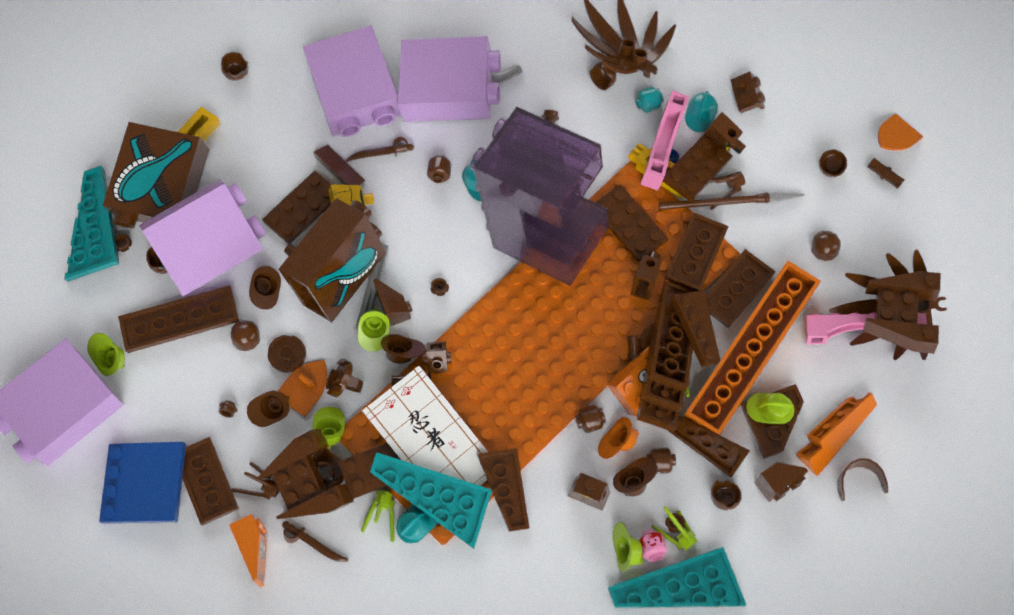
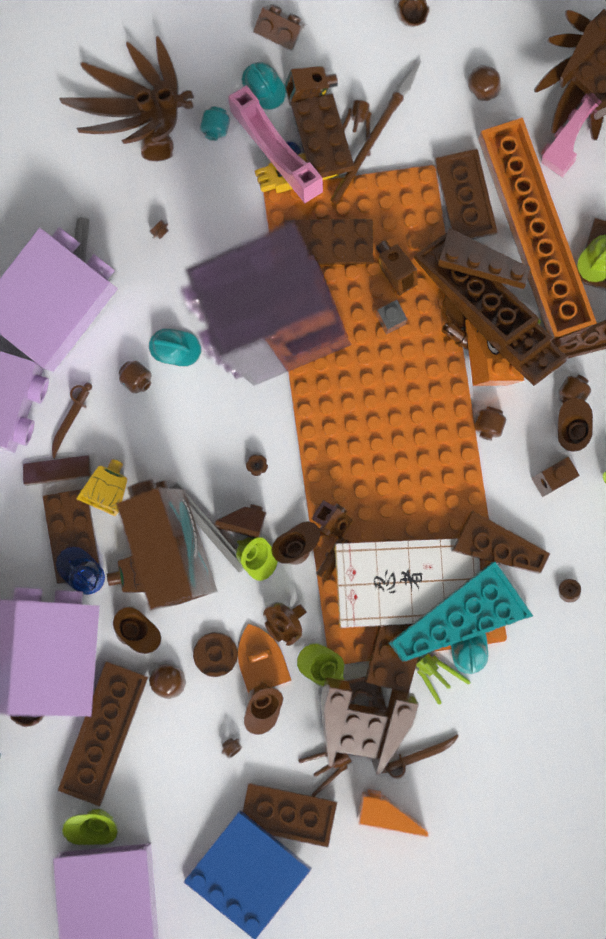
camera: 55 degrees left, 15 degrees up
(280, 226) = (80, 570): none -> clear blue piece
(513, 563) = (569, 590): none -> reddish brown tile
(610, 296) = (391, 317): none -> dark grey brick
(619, 438) = (528, 414): orange piece -> none
(696, 252) = (406, 204): reddish brown plate -> none

